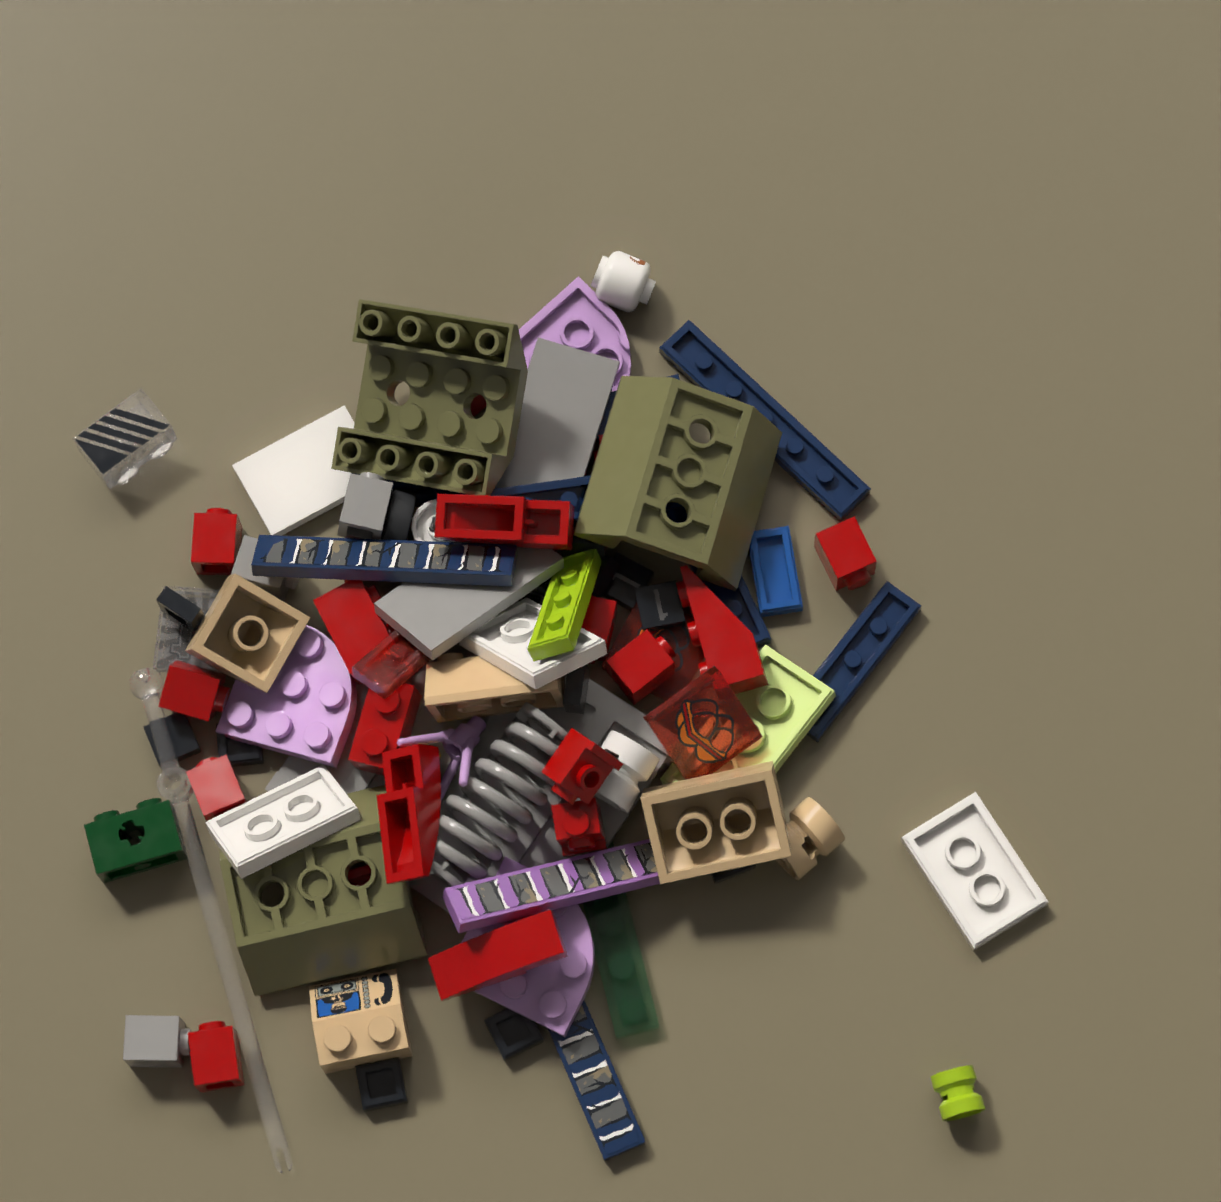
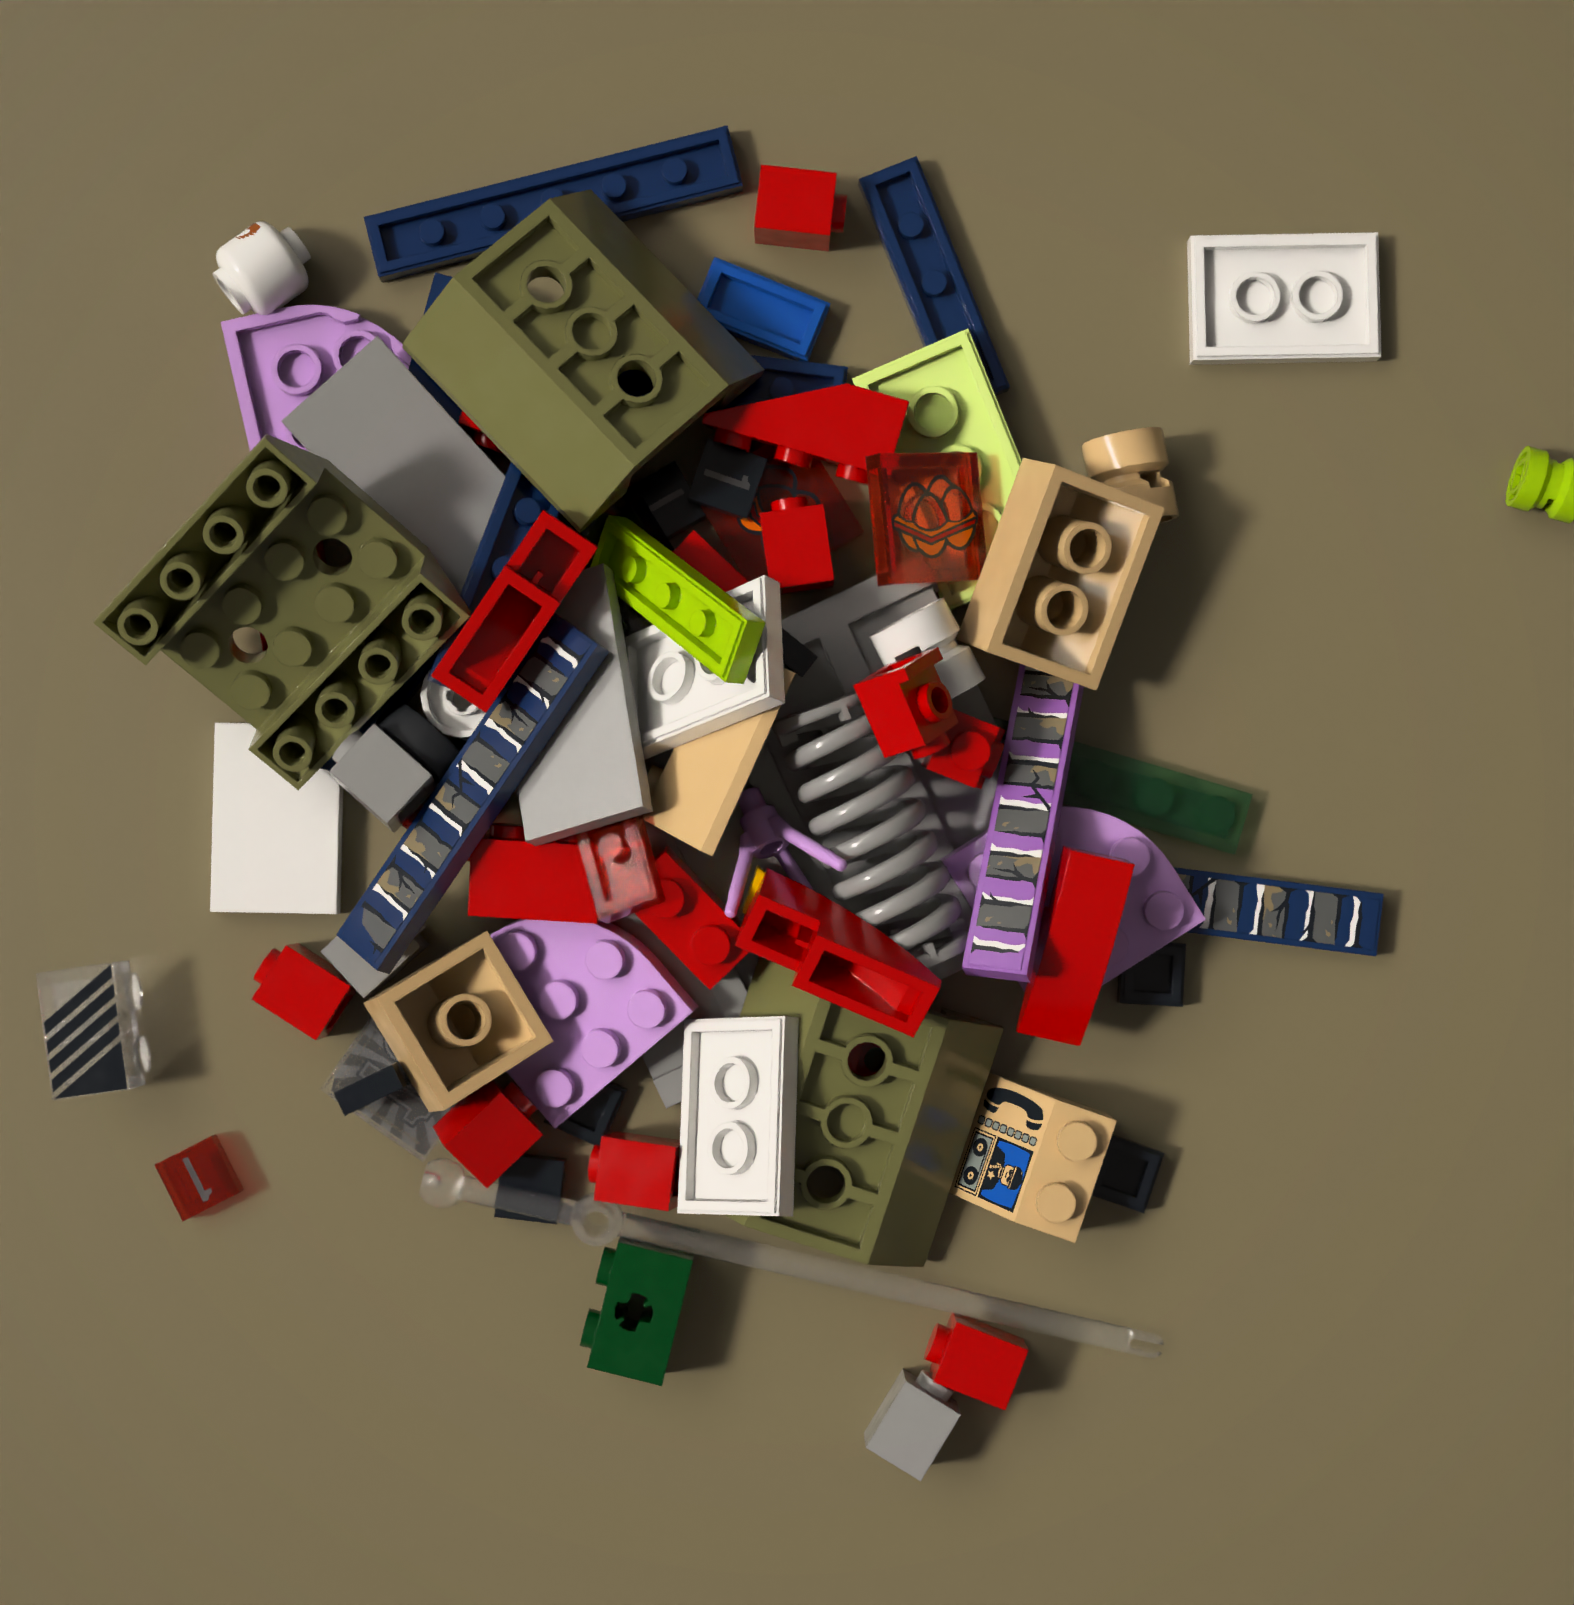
camera: 65 degrees left, 15 degrees up
(71, 548) = (199, 1177): none -> clear red tile

